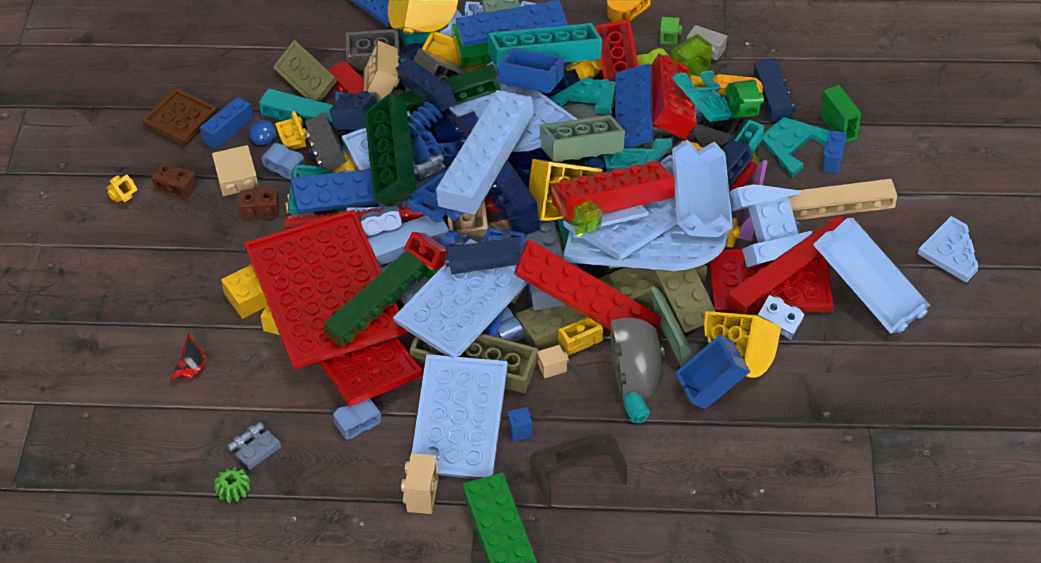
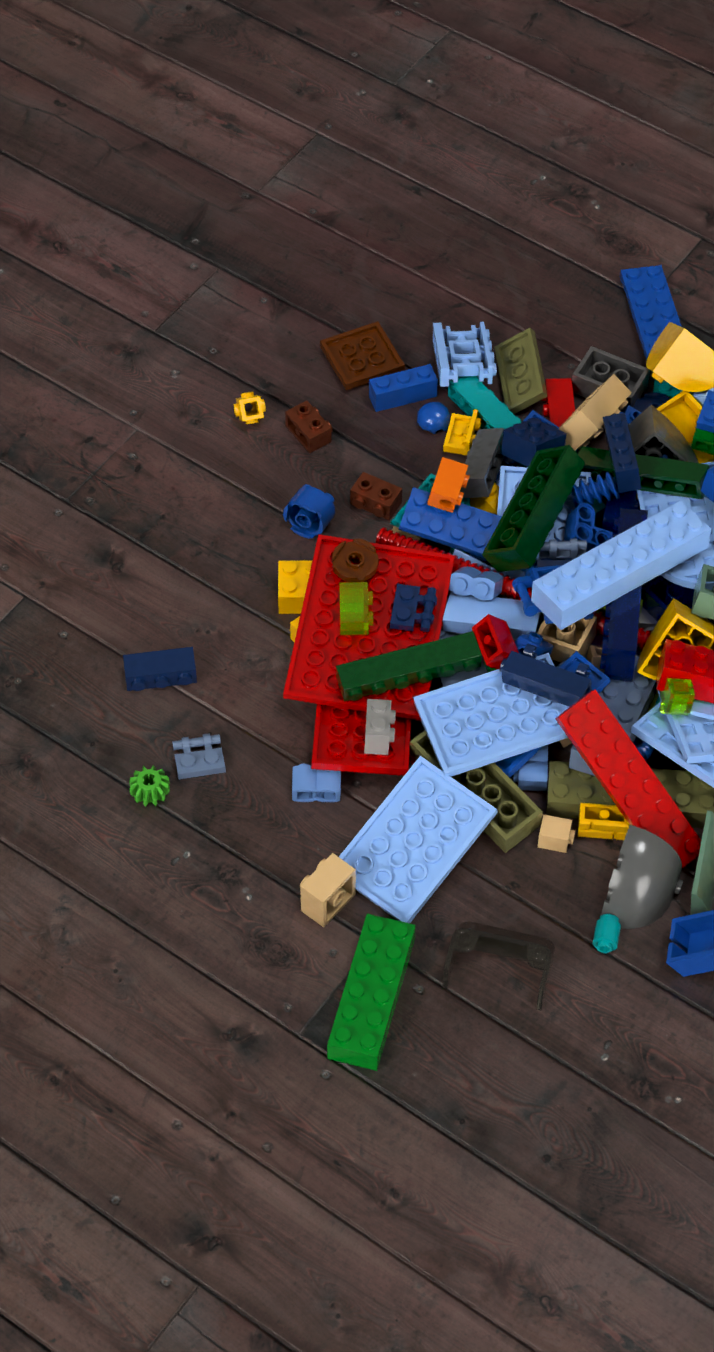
camera: 30 degrees right, 5 degrees up
(180, 400) = (160, 669): none -> dark blue brick
(190, 360) = (195, 632): hat -> none
(219, 236) = (309, 511): none -> blue brick
(235, 170) = (376, 446): tan brick -> none
(255, 80) = (463, 364): none -> light blue fence
(282, 160) = (428, 455): medium blue brick -> none
(285, 256) = (351, 550): none -> reddish brown plate
(308, 279) = (354, 608): none -> clear neon green brick
(317, 163) = (447, 485): none -> orange brick
(343, 260) = (405, 608): none -> dark blue plate
(380, 351) = (377, 728): none -> light grey brick
(520, 424) = (473, 883): blue brick -> none

